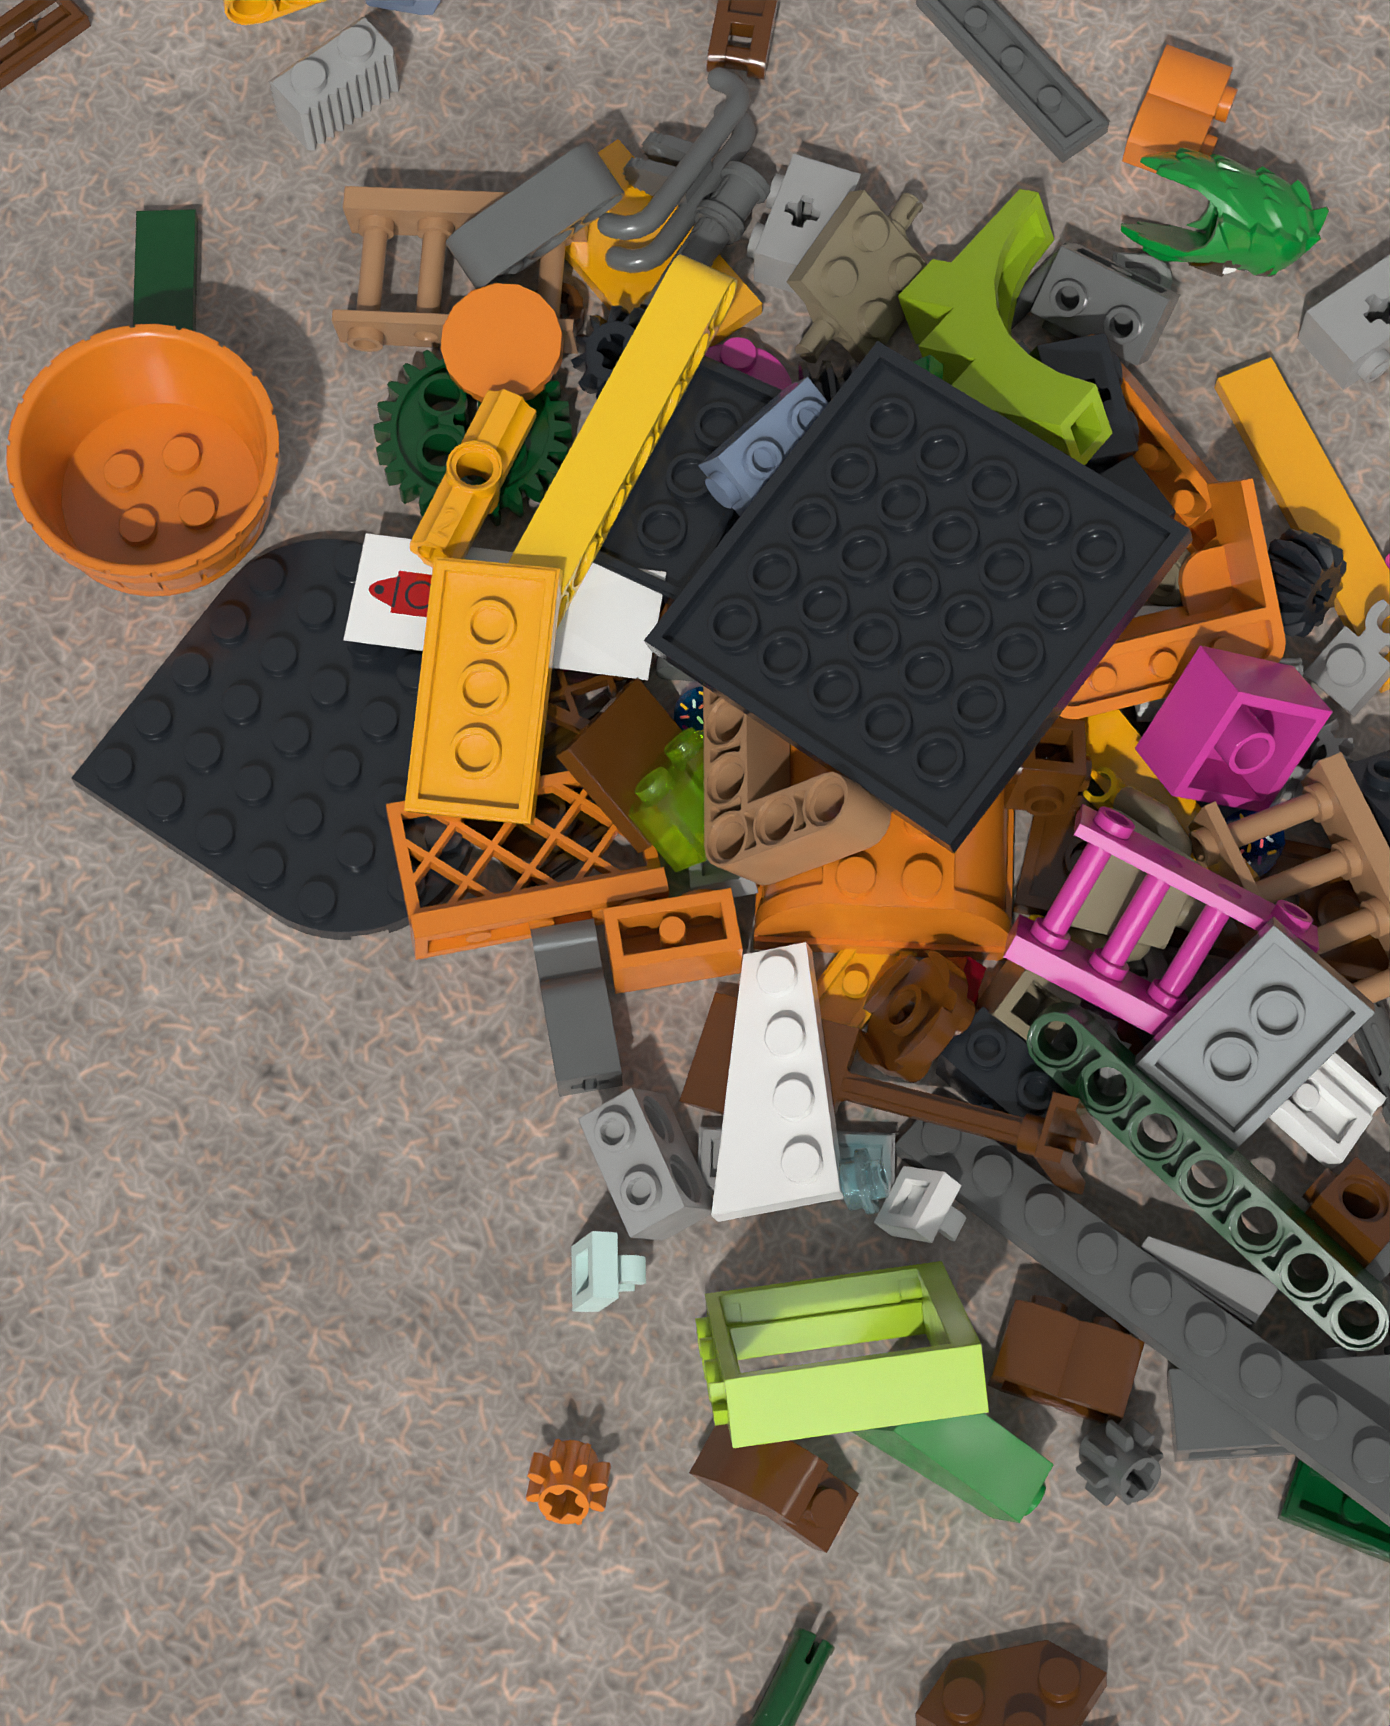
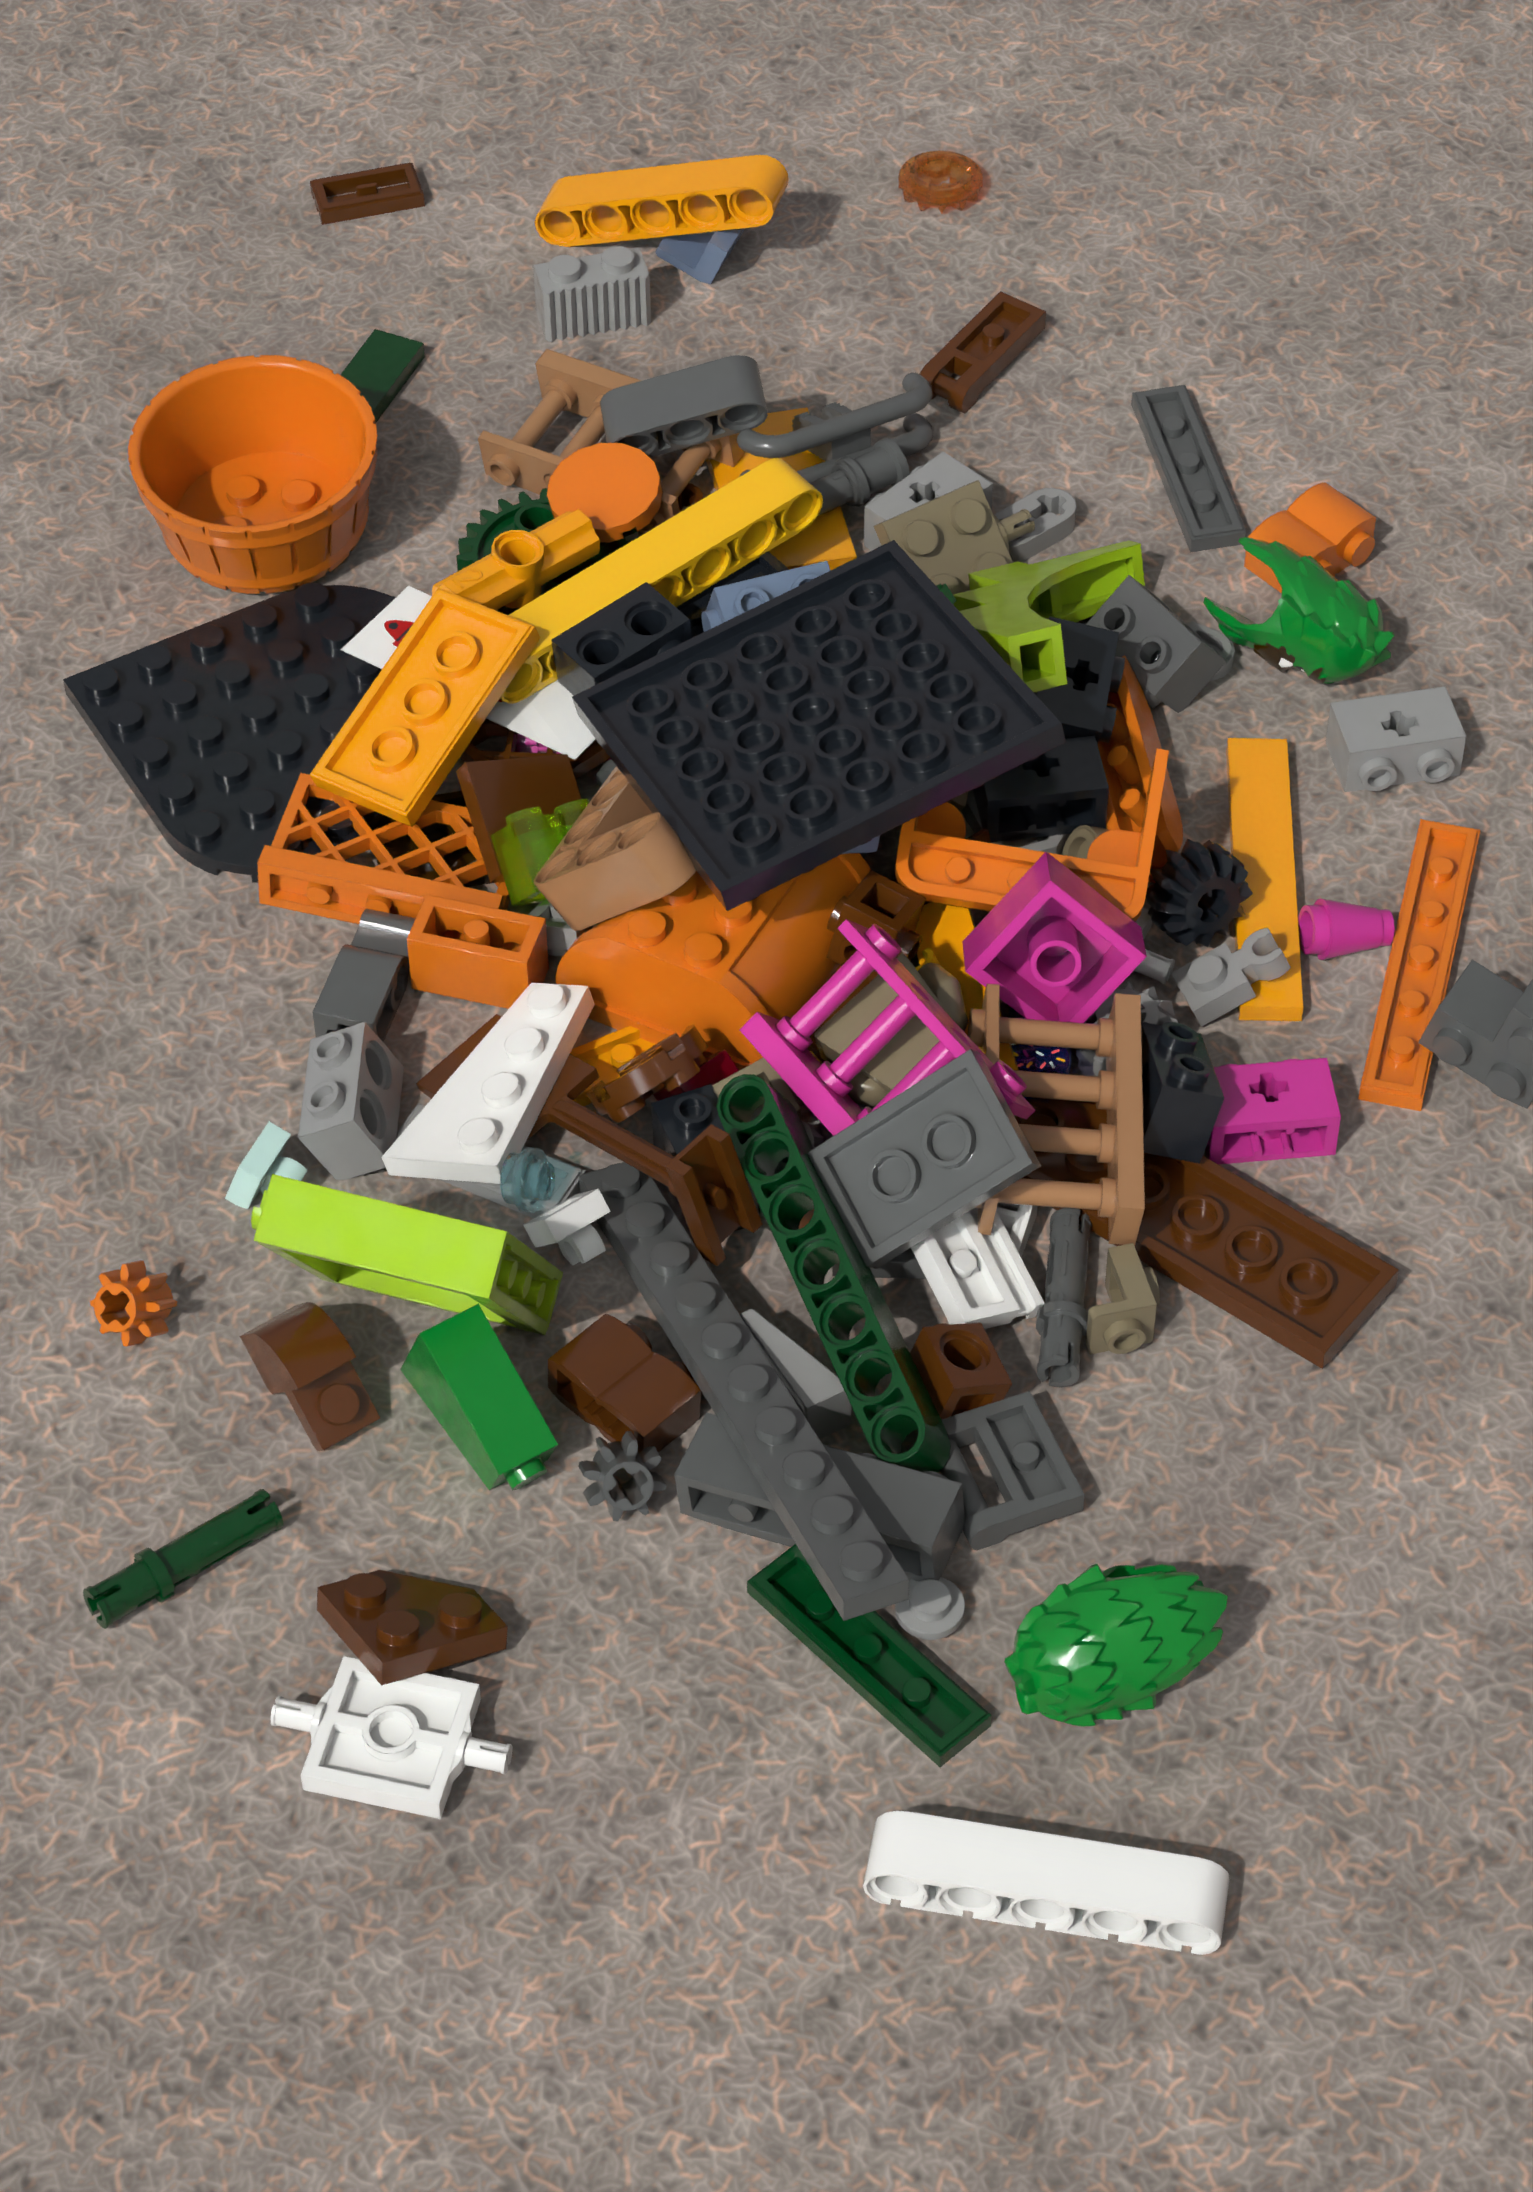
camera: 25 degrees right, 20 degrees down
(626, 539) = (618, 638): none -> black brick
(893, 180) = (1048, 527): none -> light grey beam

